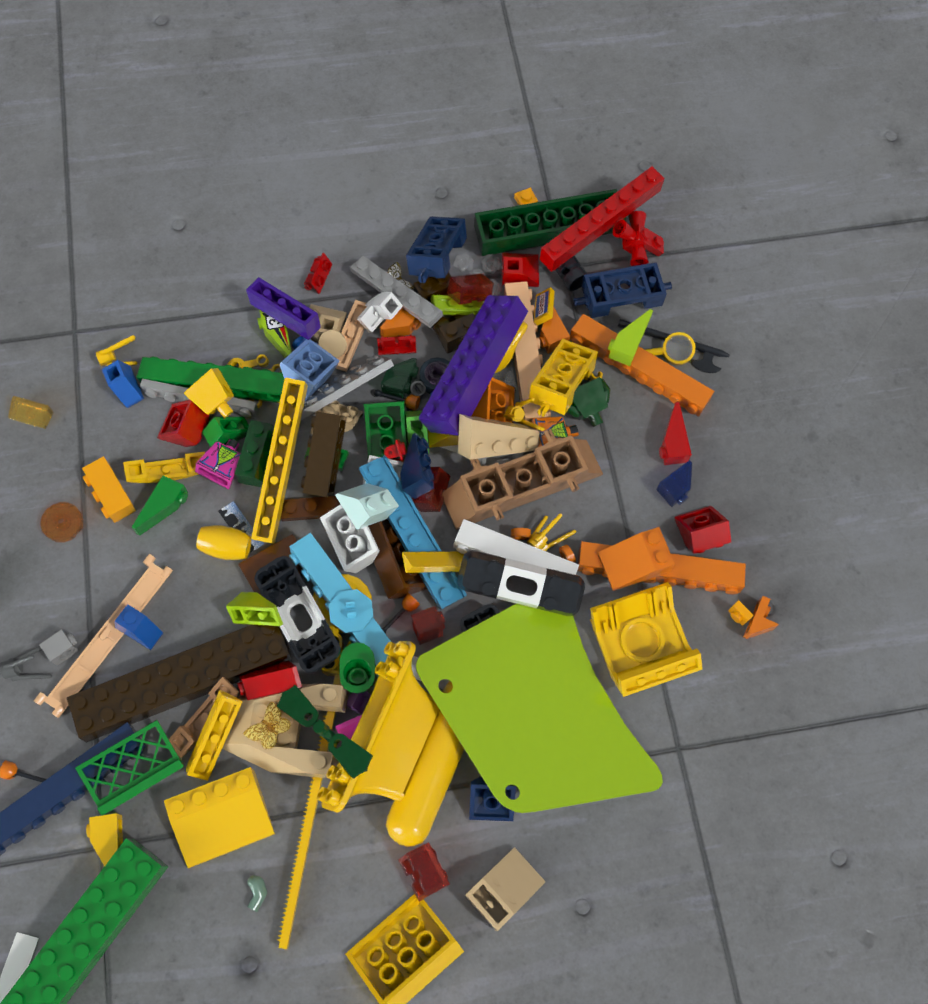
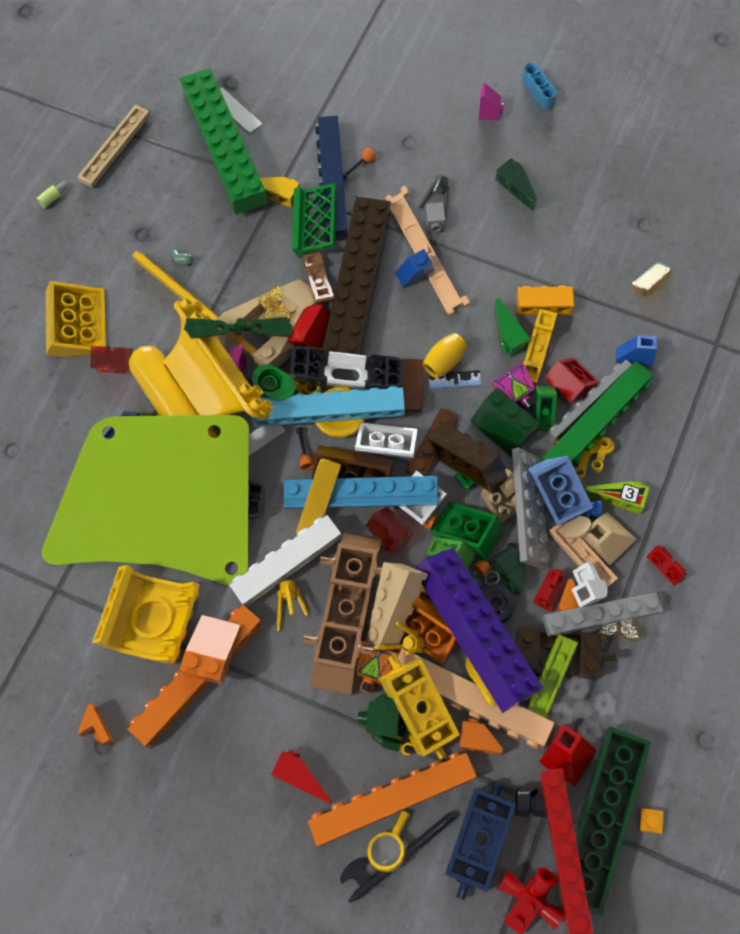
camera: 130 degrees right, 0 degrees up
(68, 528) = (538, 268): clear orange plate -> none
(107, 355) = (674, 354): yellow plant -> none
(211, 393) = (579, 402): yellow torso -> none
(213, 736) = (299, 276): yellow slope -> none
(219, 817) = (245, 259): yellow slope -> none
(254, 610) = (376, 343): lime slope -> none
(279, 460) = (484, 420): yellow brick -> none
(283, 308) = (632, 498): dark purple brick -> none
(351, 611) = (320, 402): medium azure piece -> none
(367, 504) = (399, 458): light aqua slope -> none
(396, 450) = (436, 517): red hinge -> none
(416, 469) = (411, 525): dark blue slope -> none
(428, 624) = (276, 458): clear red brick -> none
(432, 247) = (621, 658): dark blue brick -> none
(469, 288) = (564, 682): clear red brick -> none
(488, 574) = (235, 566): black piece -> none
(505, 889) = (60, 401): tan slope -> none
(520, 533) = (304, 580): orange tile -> none
(544, 306) = (506, 743): tile -> none
(566, 553) = (260, 605): orange tile -> none
(628, 340) = (415, 792): lime slope -> none
(676, 485) = (255, 744): clear blue slope -> none
(703, 529) = (202, 737): red slope -> none
(740, 613) = (112, 712): light orange plate -> none

